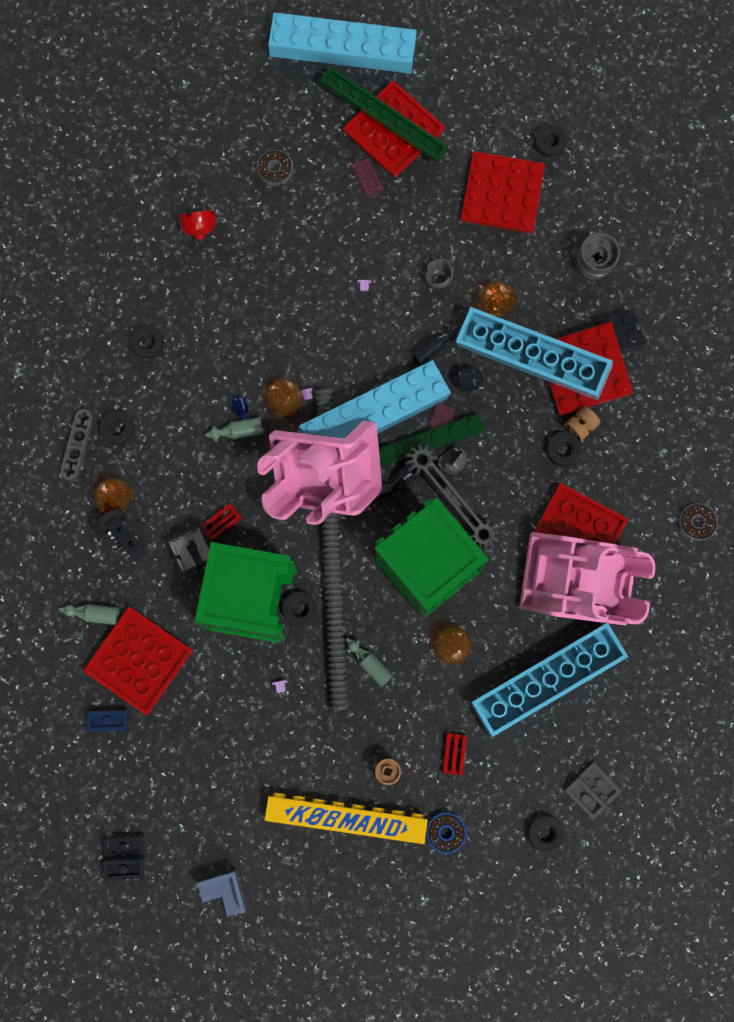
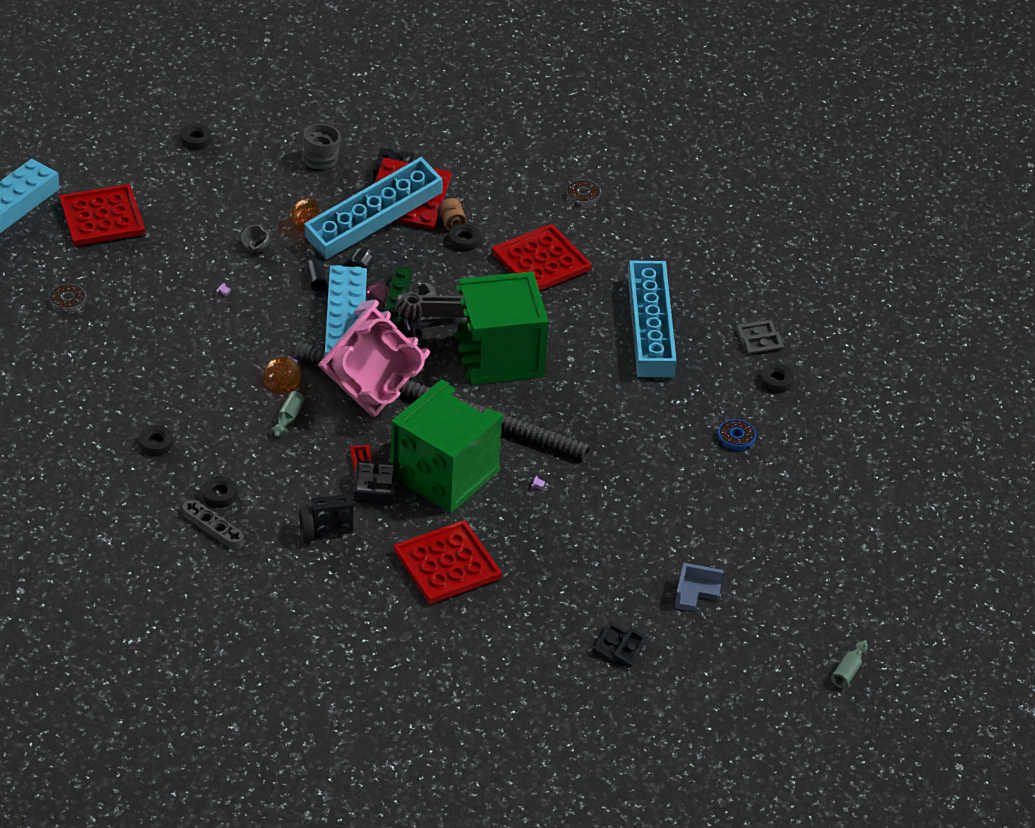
camera: 65 degrees left, 35 degrees down
(94, 613) = (382, 572): sand green wheel -> none
(107, 721) = (487, 603): dark blue plate -> none
(112, 495) = (281, 512): clear orange cylinder -> none
(198, 223) = (77, 358): red cylinder -> none
(240, 407) = (268, 405): clear blue cylinder -> none
(346, 819) = (683, 486): yellow brick -> none
(367, 177) = (129, 249): clear pink tile -> none
(370, 663) = (561, 417): sand green wheel -> none
(384, 114) = (86, 208): dark green plate -> none
(388, 771) = (661, 441): medium nougat wheel -> none
(452, 645) = (580, 364): clear orange cylinder -> none
(463, 746) = (674, 402): red tile -> none
(502, 192) = (215, 180): red plate -> none
(584, 579) = (581, 253): bright pink piece -> none

